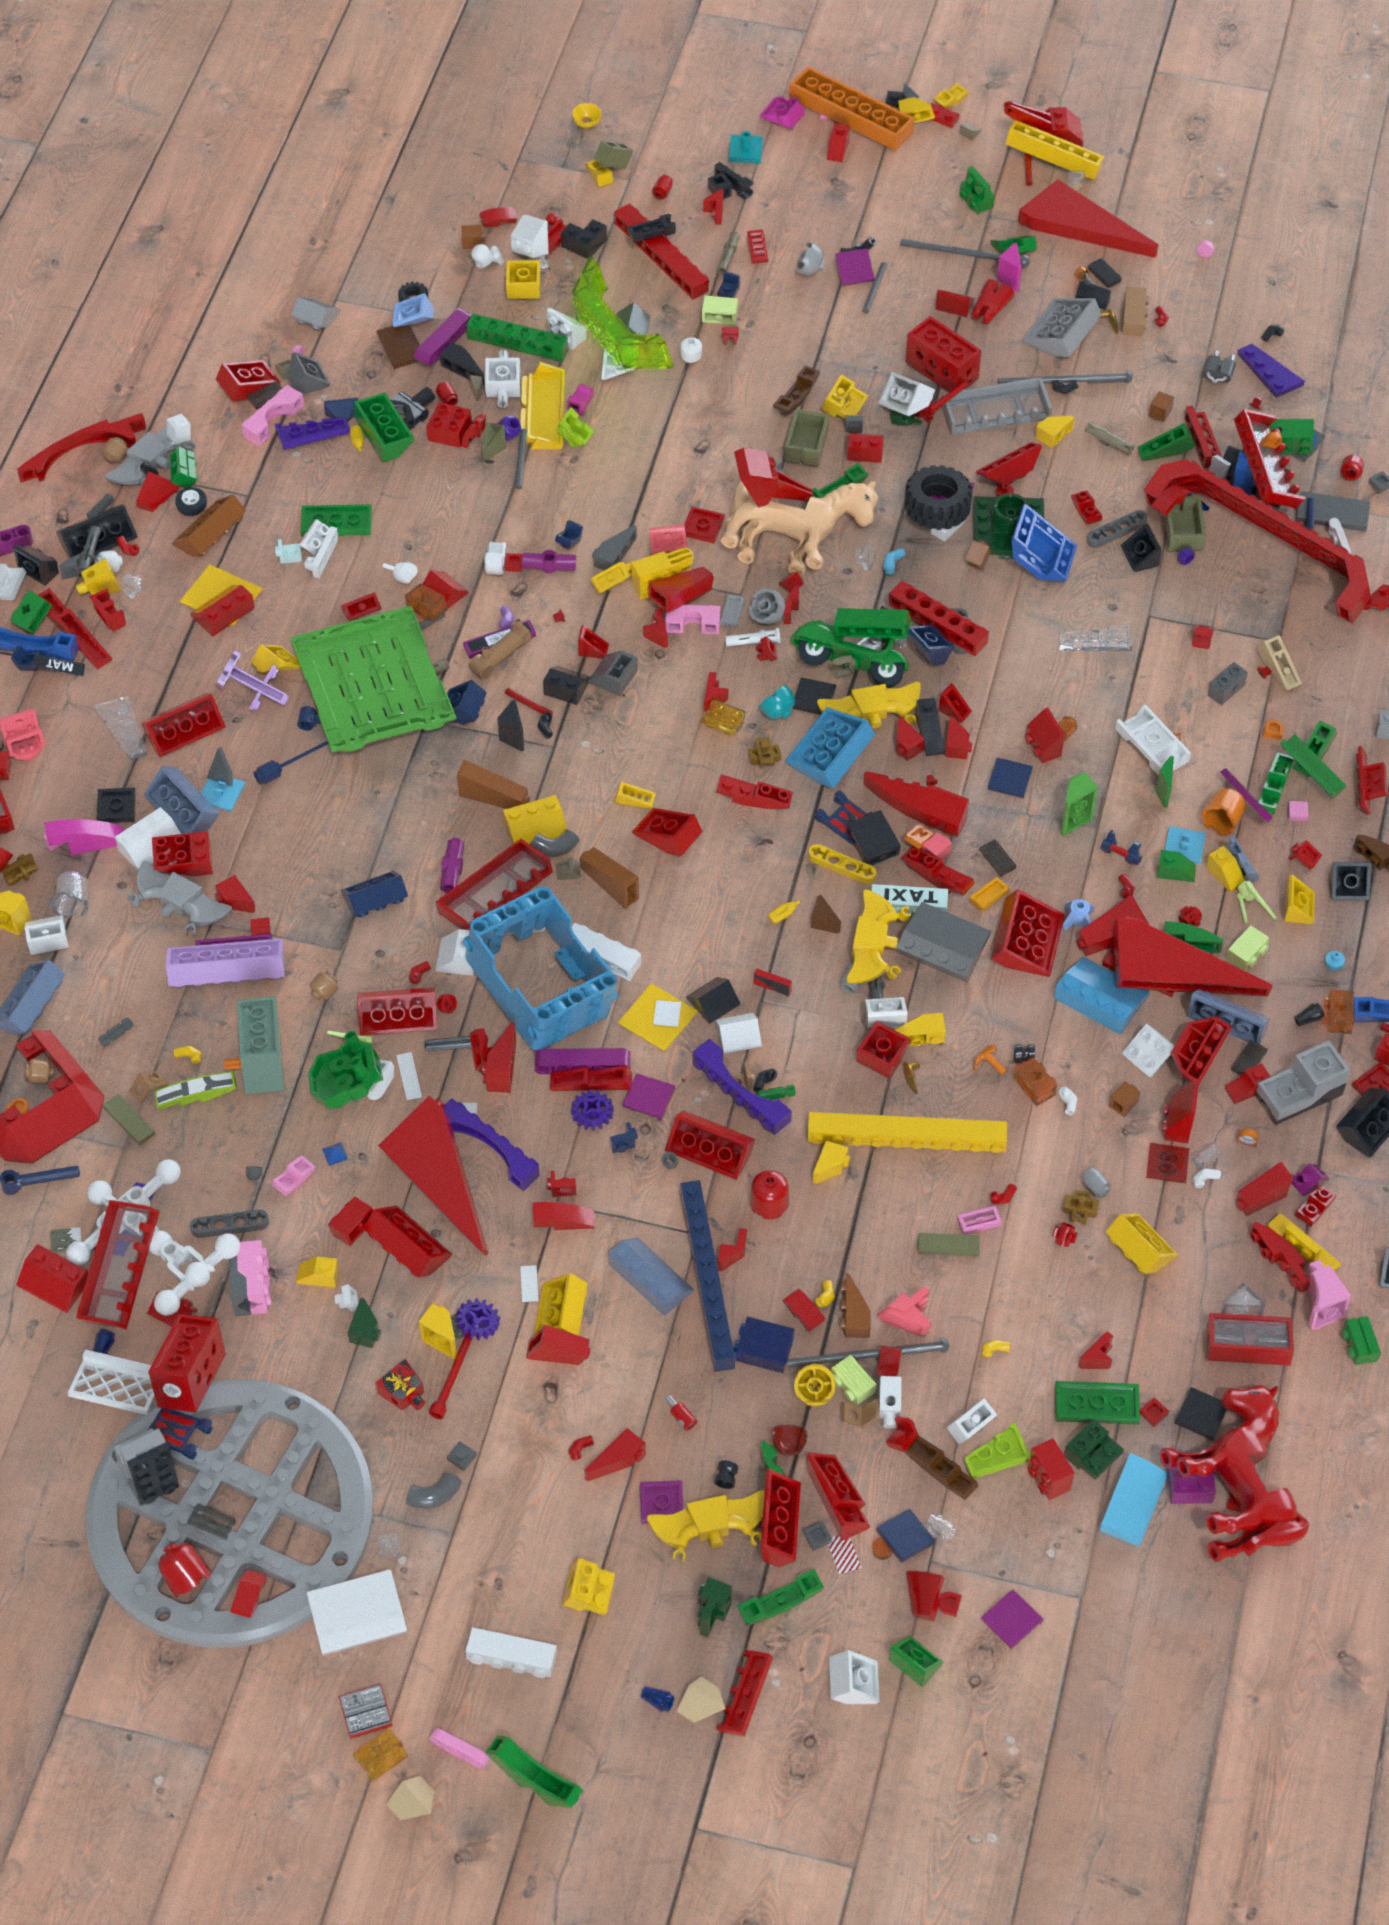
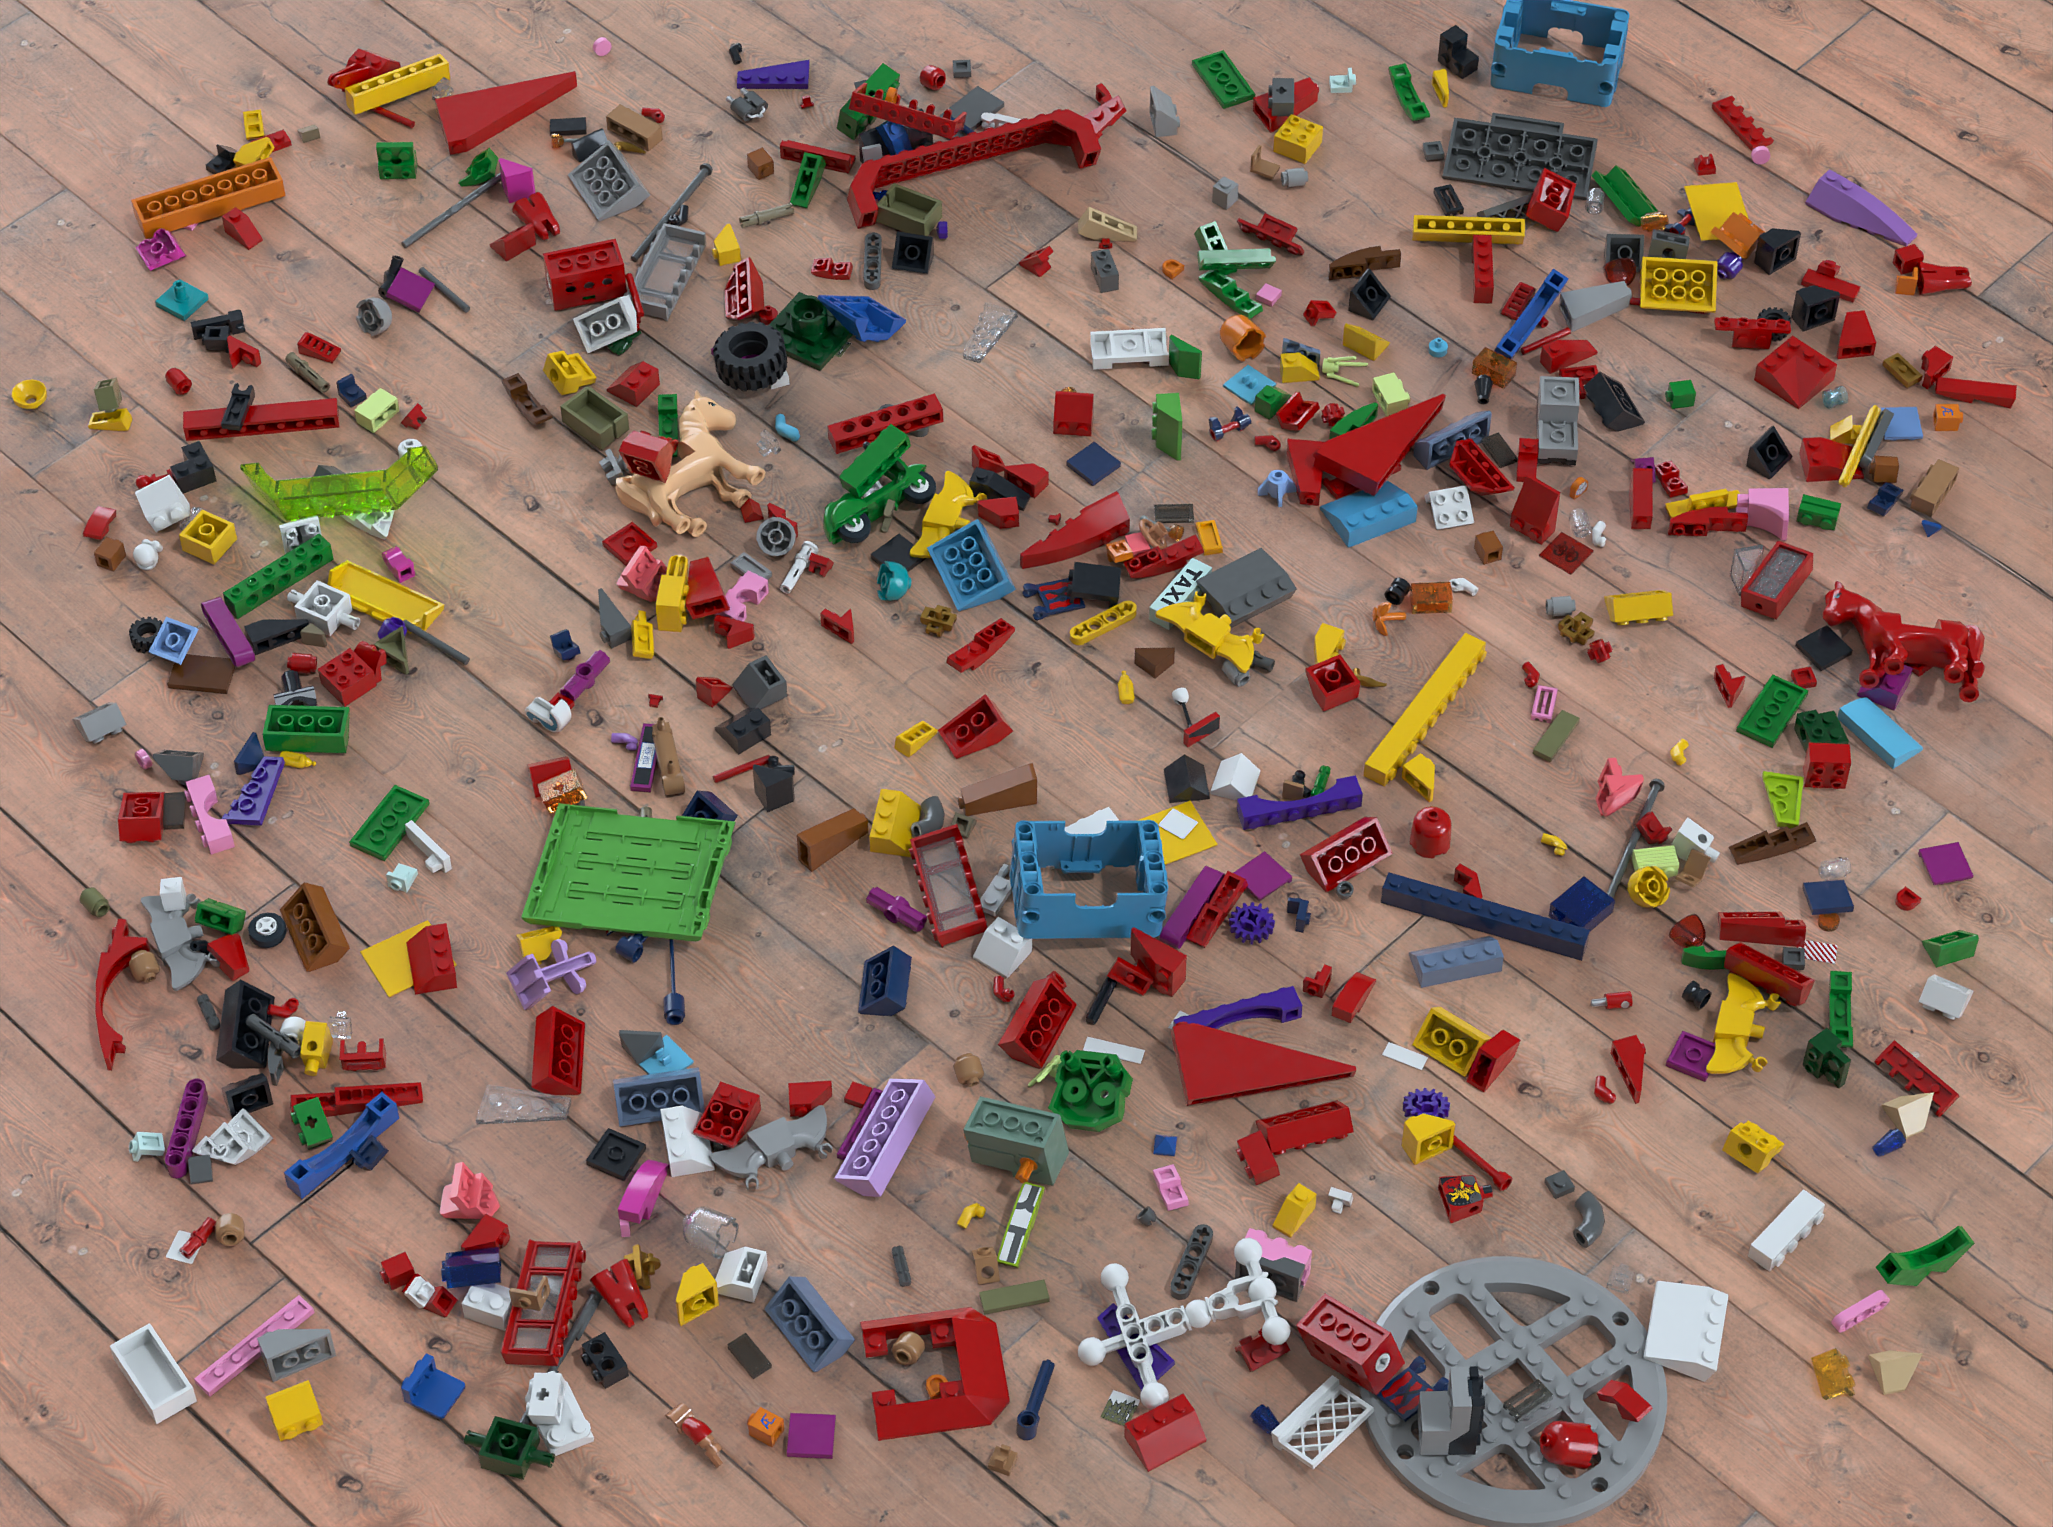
camera: 60 degrees left, 5 degrees down
(59, 665) = (398, 1129): black sticker -> none
(117, 1264) = (1199, 1359): window -> none
(154, 394) = (94, 902): none -> olive brick
(283, 368) = (151, 779): dark tan slope -> none
(314, 537) = (404, 845): white hips -> none
(361, 606) = (518, 849): red slope -> none
(364, 1326) = (1376, 1198): dark green slope -> none
(365, 1711) = (1785, 1367): light grey tile -> none
(403, 571) = (502, 796): white piece -> none
(573, 429) = (436, 585): lime cylinder -> none
(724, 717) = (876, 629): clear yellow bracket -> none
(798, 953) = (1181, 697): none -> white hinge
(804, 1309) = (1559, 864): red slope -> none
(854, 424) = (602, 379): dark grey plate -> none
(857, 1313) = (1585, 828): dark orange slope -> none
(887, 1011) = (1294, 660): white slope -> none
(903, 1435) = (1730, 852): red bracket -> none
(924, 1593) = (1892, 909): red slope -> none
(930, 643) = (919, 442): dark blue slope -> none
(958, 852) = (1155, 534): none -> nougat piece
(971, 1421) = (1747, 798): white brick -> none
(975, 868) = (1174, 531): none -> clear orange hinge
(978, 554) = (831, 364): brick -> none
(1027, 934) = (1273, 530): red slope -> none
(1172, 495) = (886, 201): red slope -> none
(1173, 890) = (1296, 412): none -> red bracket
(1246, 794) = (1222, 315): magenta tile -> none

